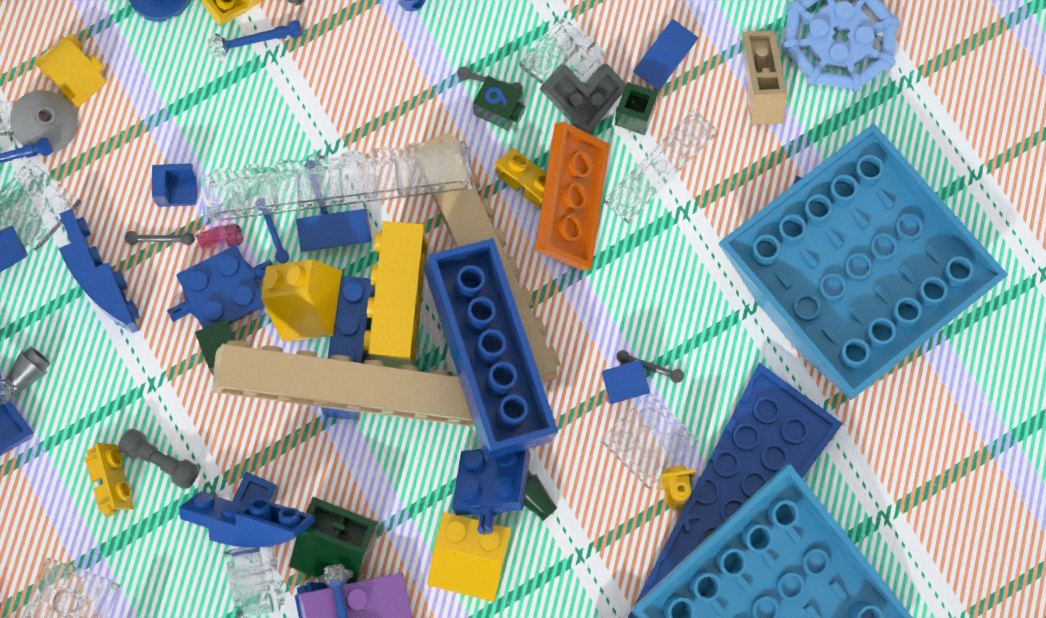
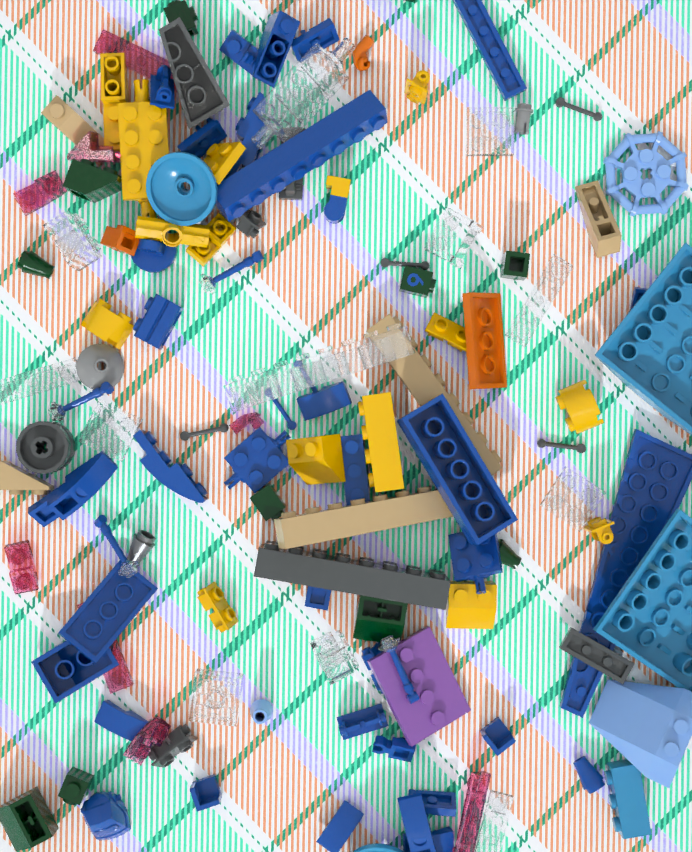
camera: 15 degrees left, 15 degrees up
(135, 444) = (228, 580): dark grey piece -> none
(138, 79) = (157, 321): none -> blue brick
(174, 185) = (205, 393): blue panel -> none
(249, 525) = (321, 622): blue slope -> none
(306, 469) = (353, 576): none -> dark grey brick
(580, 102) = (475, 268): dark grey plate -> none
(625, 381) = (550, 465): blue panel -> none
(665, 54) = (526, 218): blue slope -> none
(685, 312) = (580, 407): none -> yellow brick

